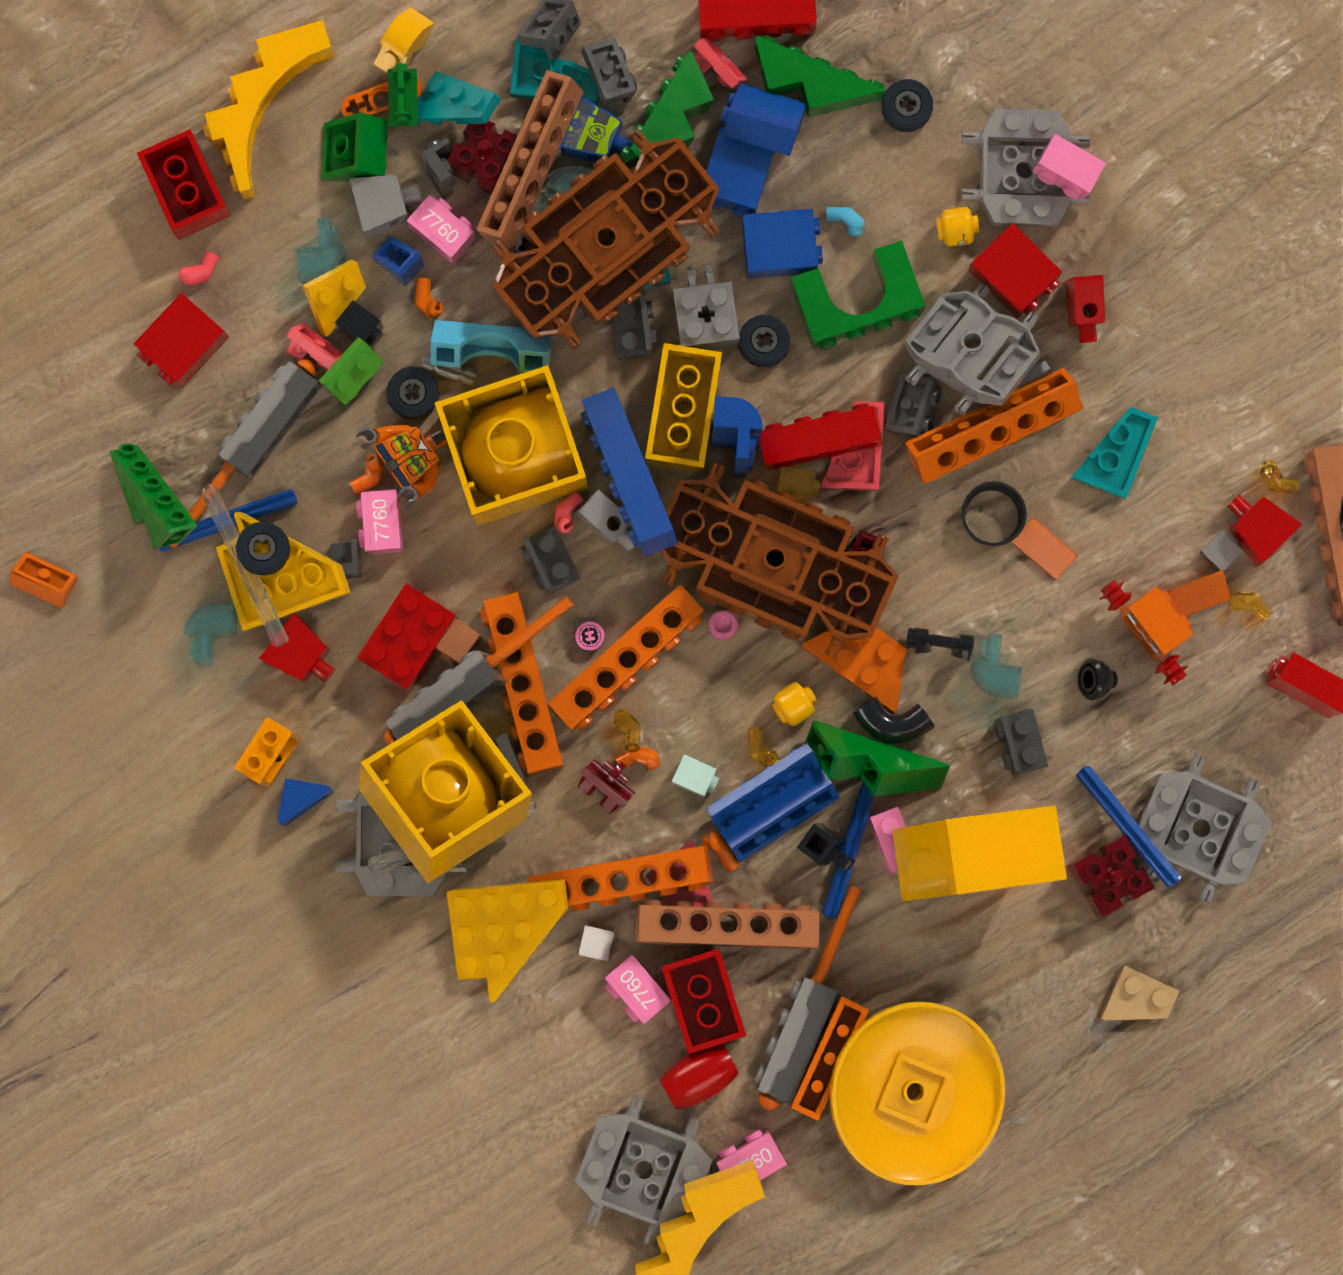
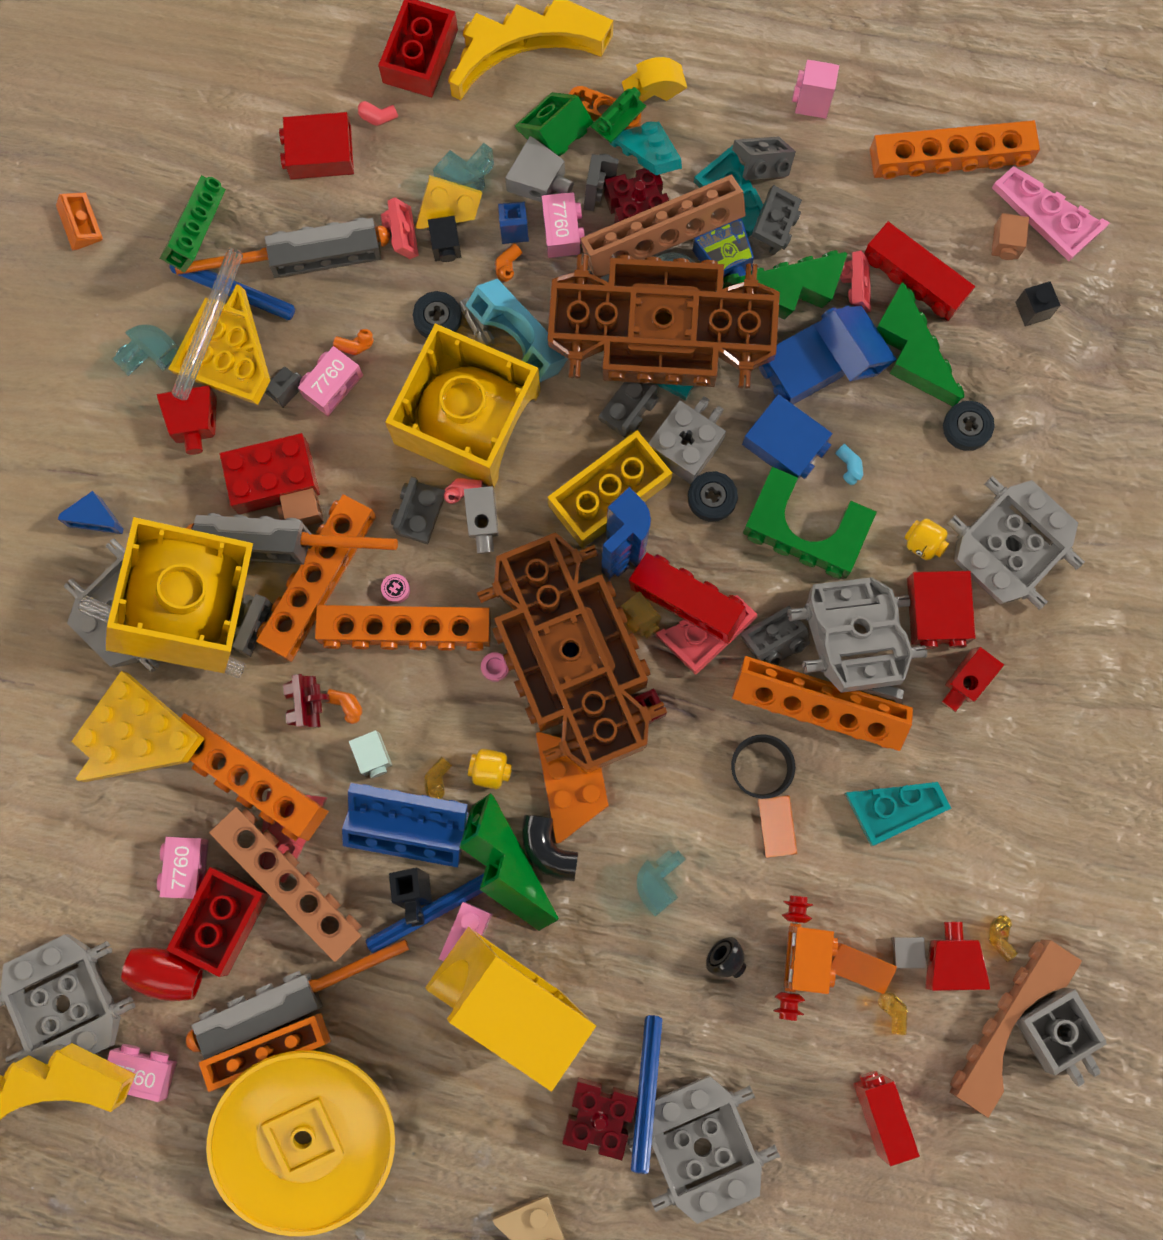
camera: 45 degrees right, 5 degrees down
(260, 756) = (107, 456): light orange window -> none
(262, 533) = (227, 306): black bush -> none
(351, 371) = (407, 261): bright green bracket -> none
(407, 456) = (389, 352): torso -> none
(596, 943) = (189, 806): white slope -> none
(629, 472) = (525, 496): blue brick -> none
(629, 728) = (359, 677): clear yellow arm -> none
(716, 842) = (338, 813): orange arm -> none
(923, 642) = (625, 811): black piece -> none
(1021, 742) = (628, 953): dark grey bracket -> none
(1068, 168) = (1048, 567): bright pink brick -> none

